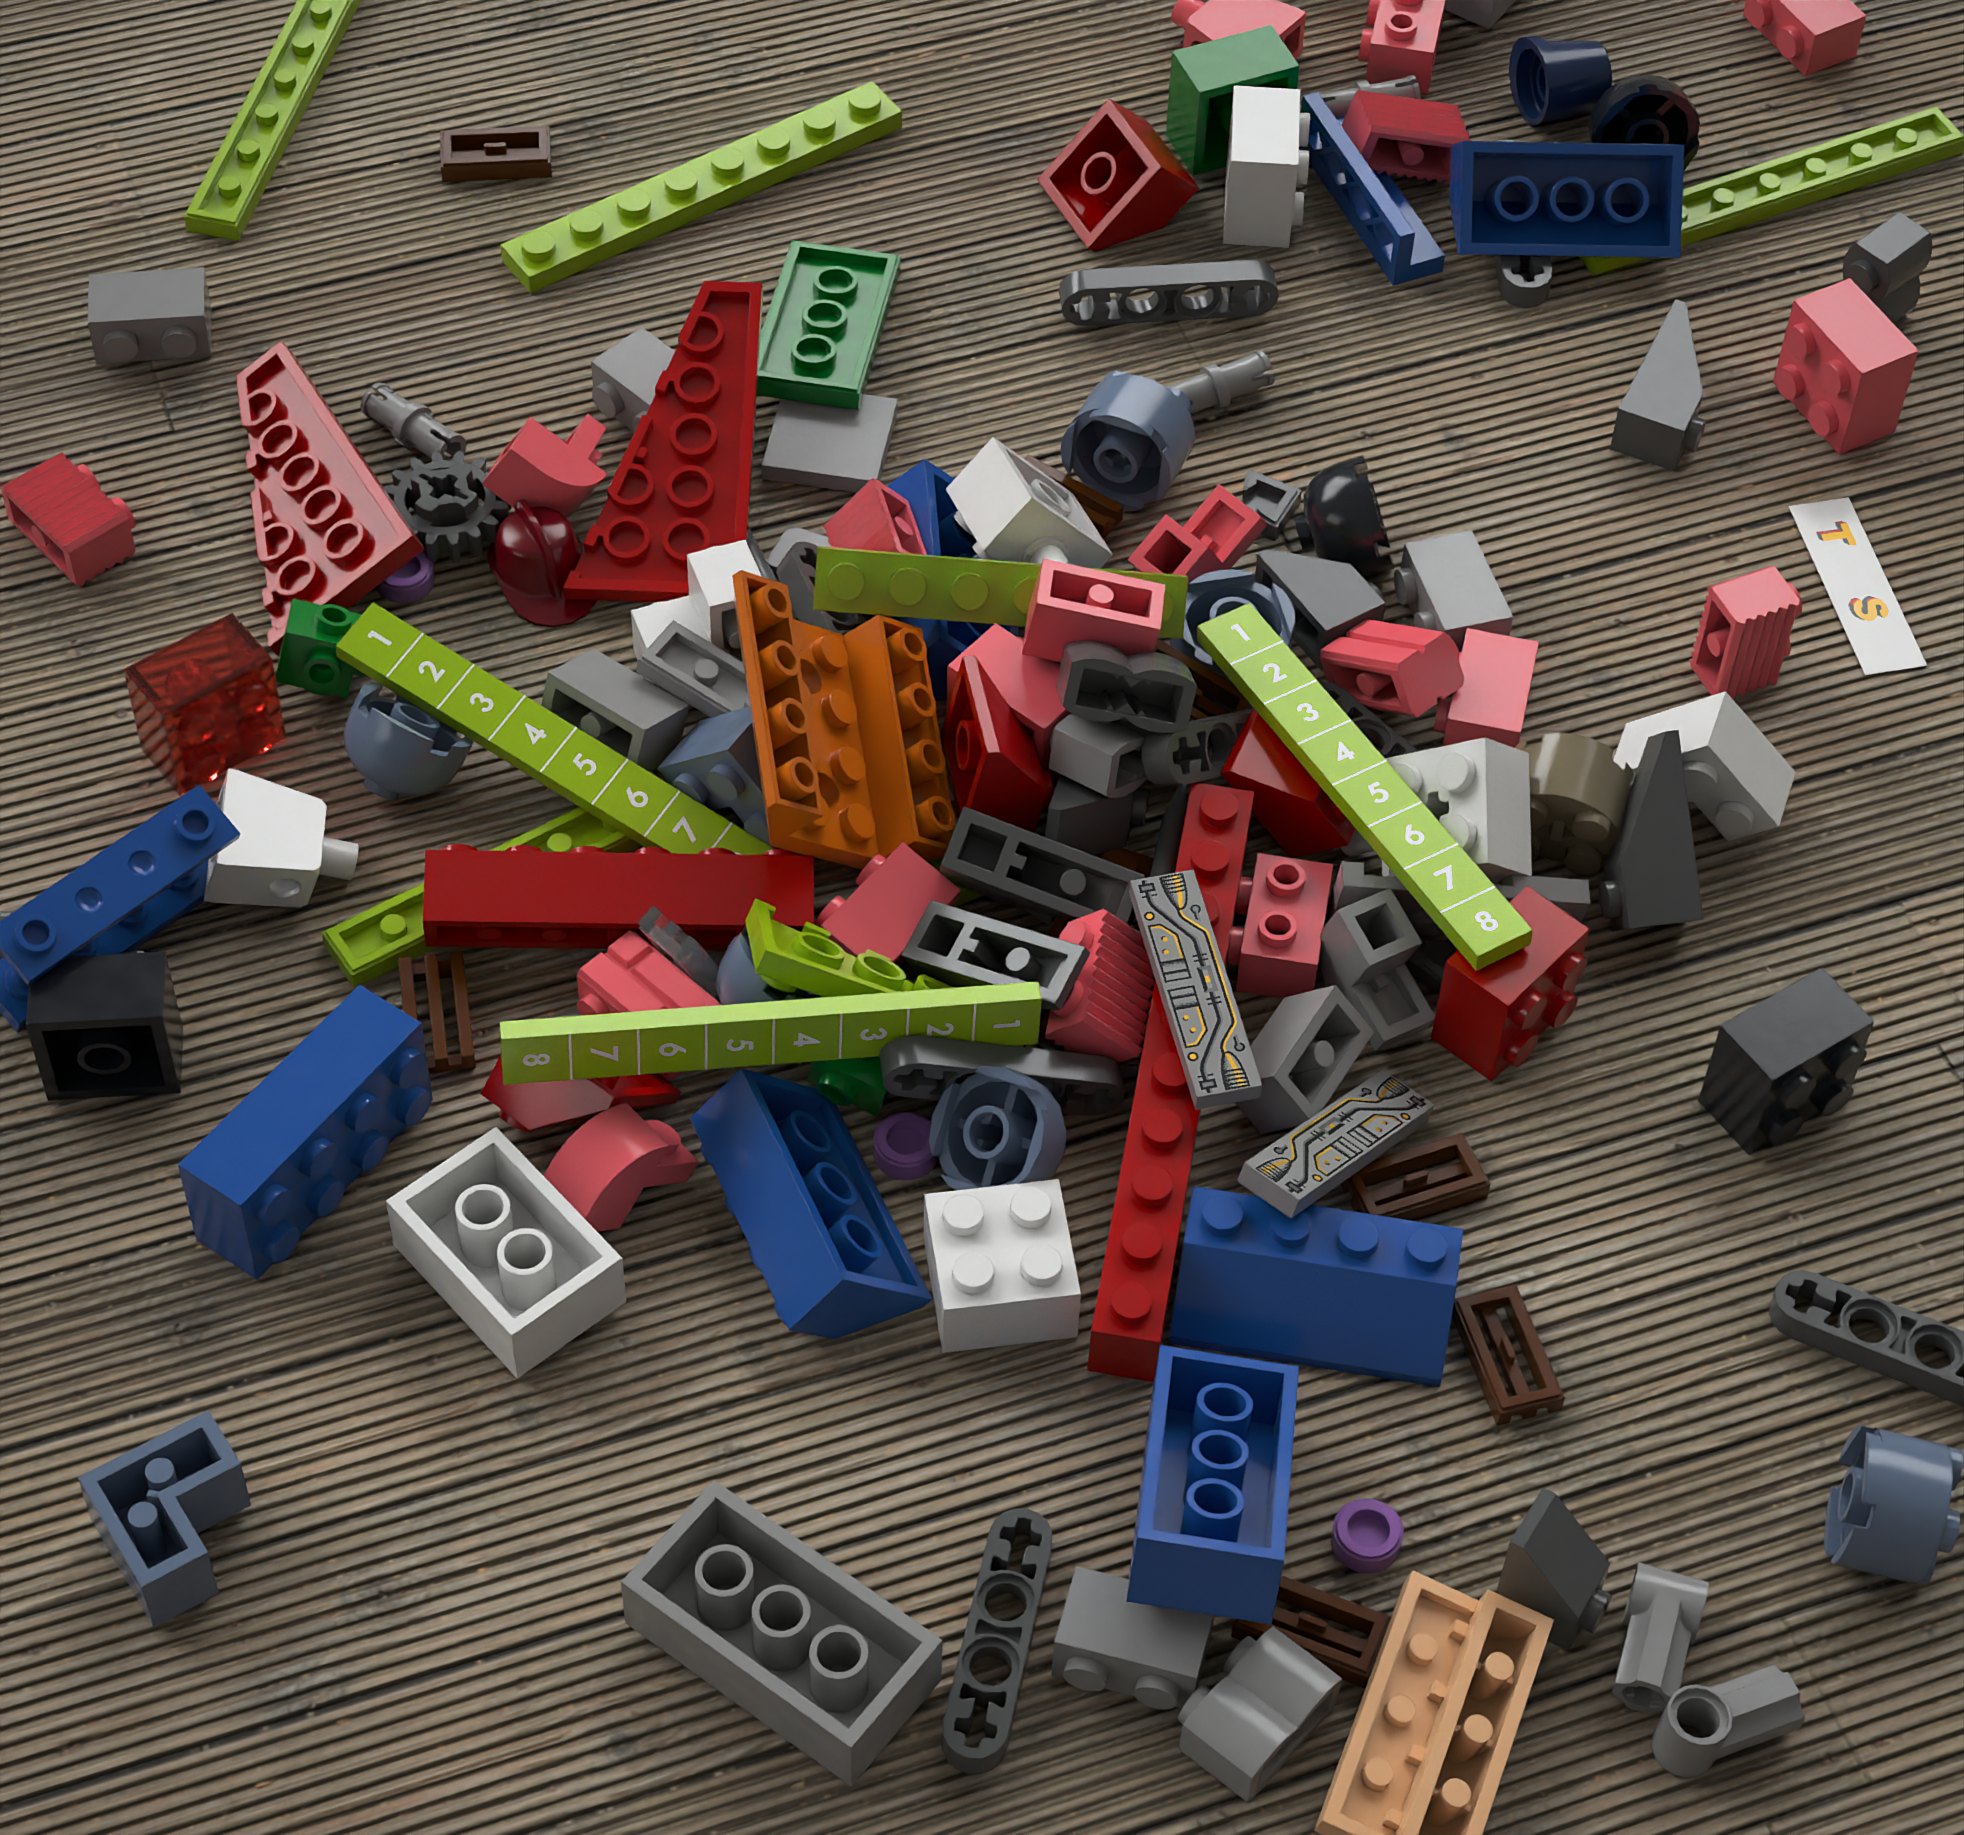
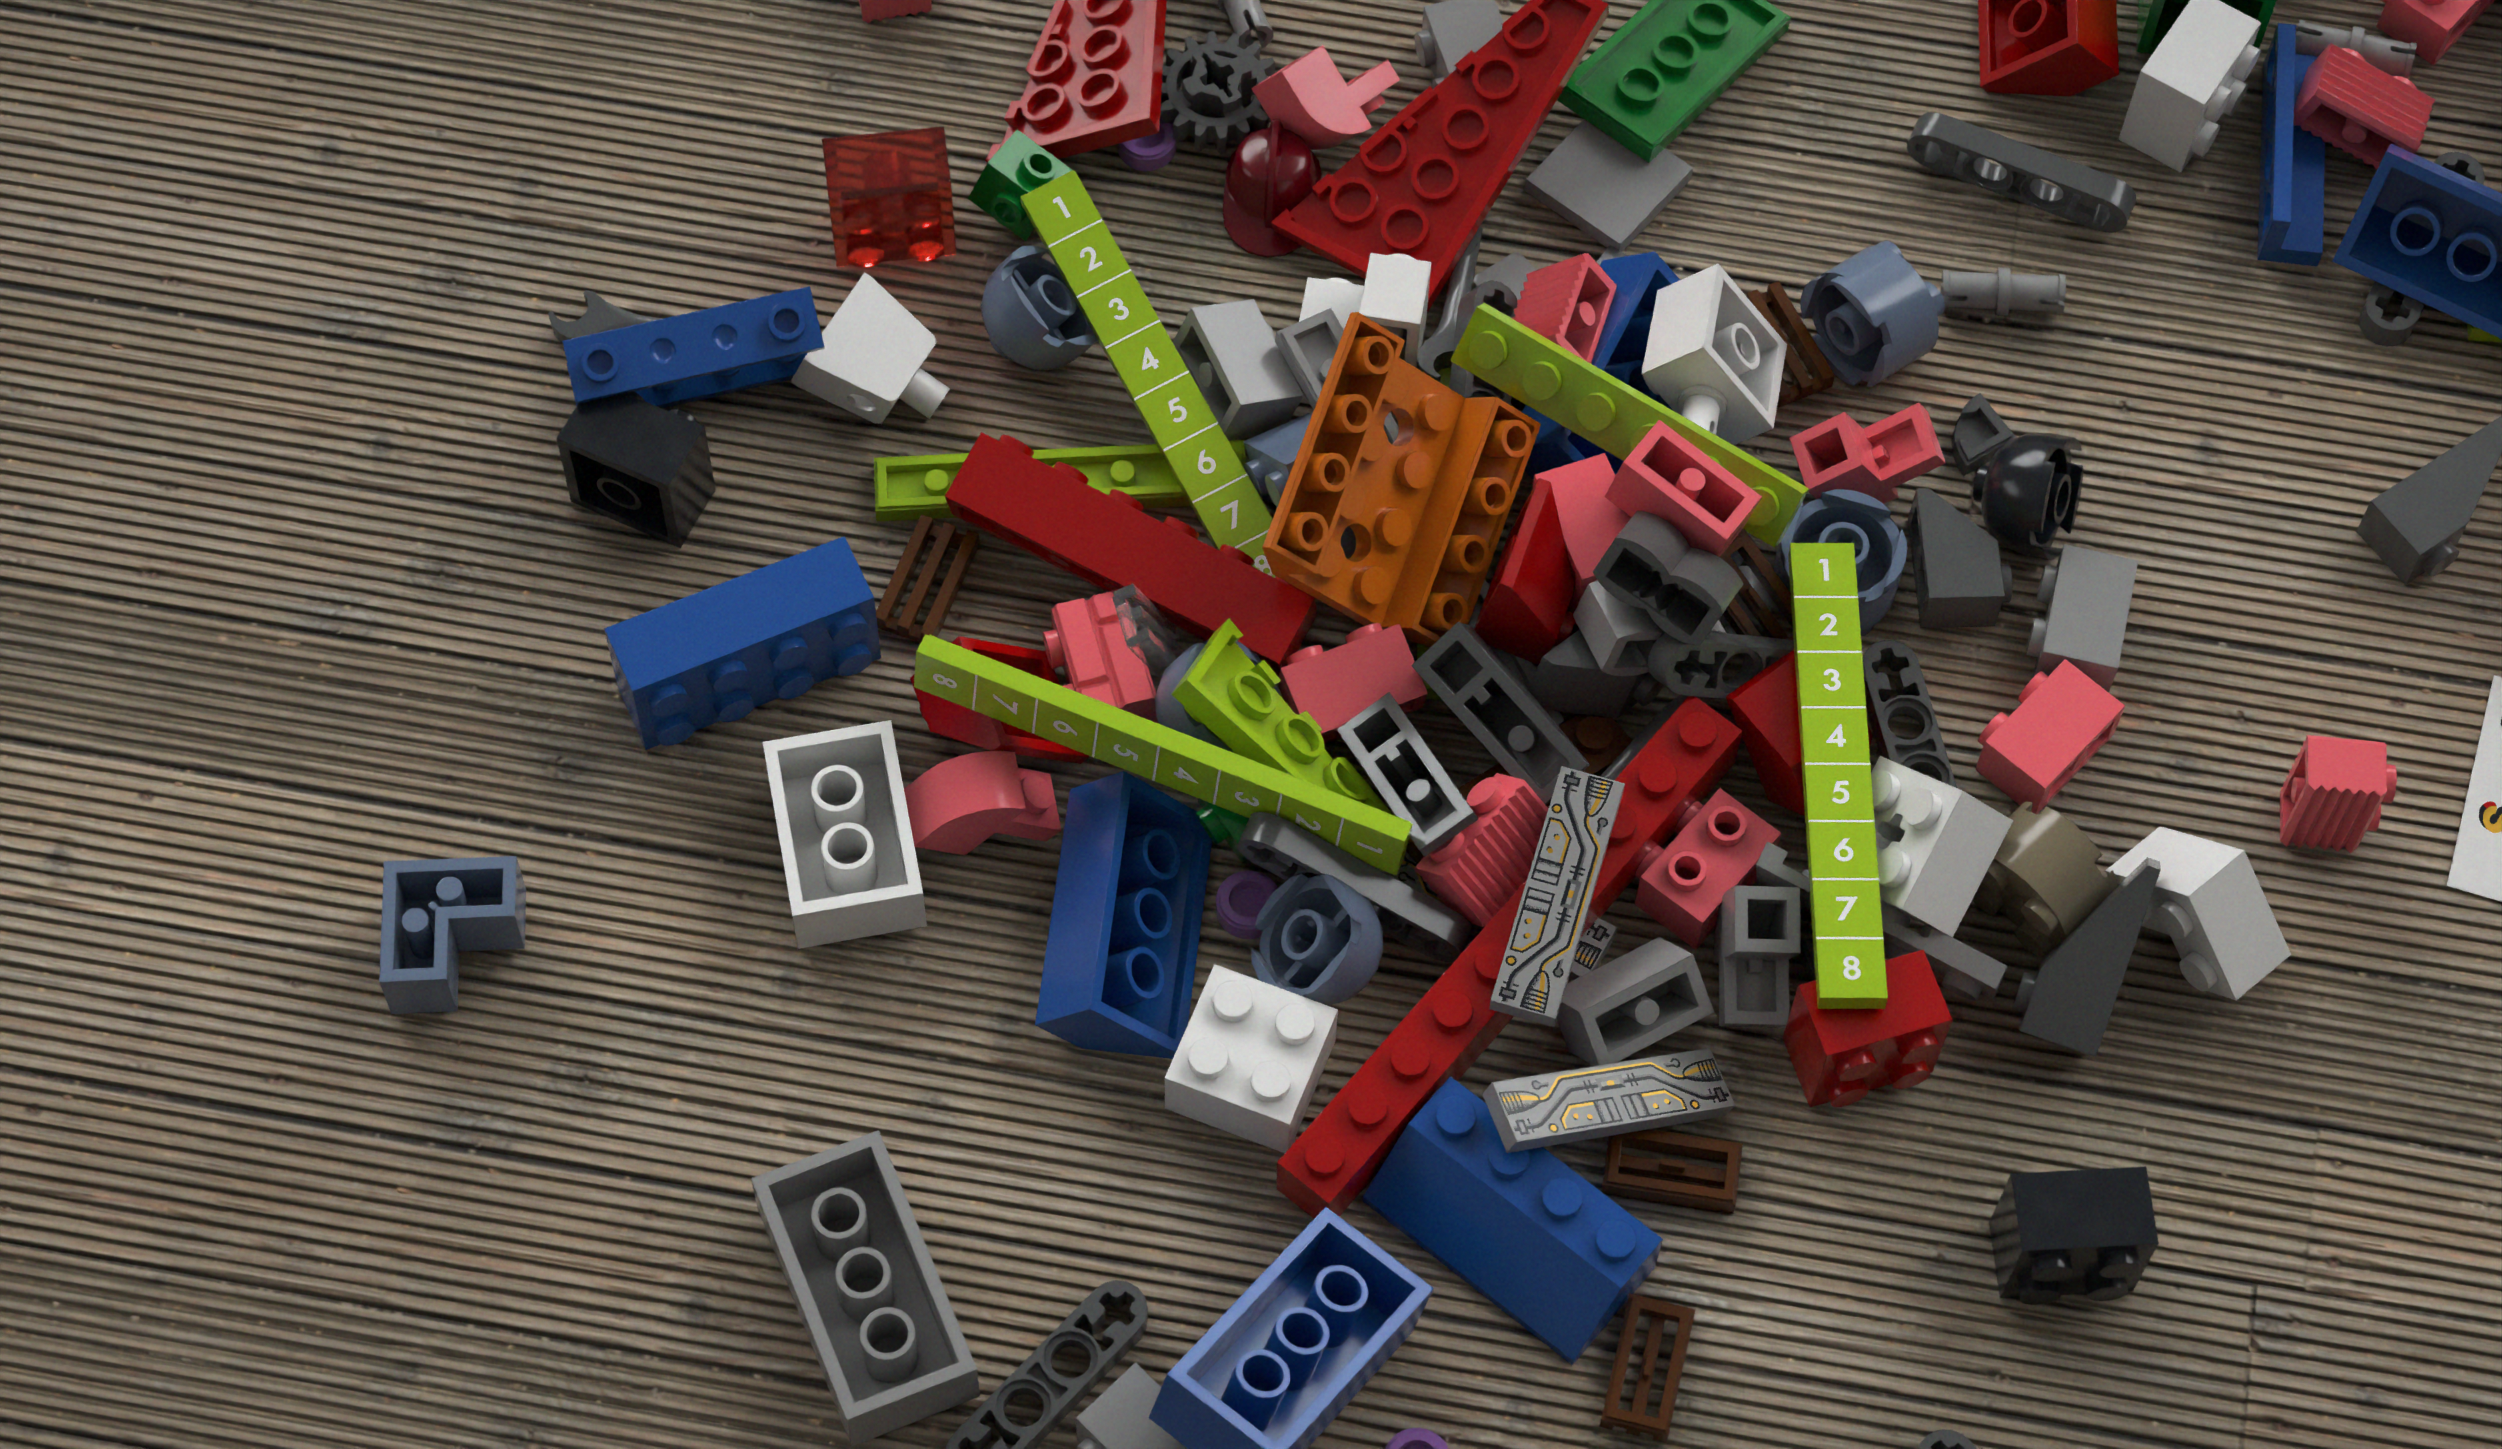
camera: 30 degrees right, 10 degrees up
(1394, 666) = (1970, 664): coral brick -> none

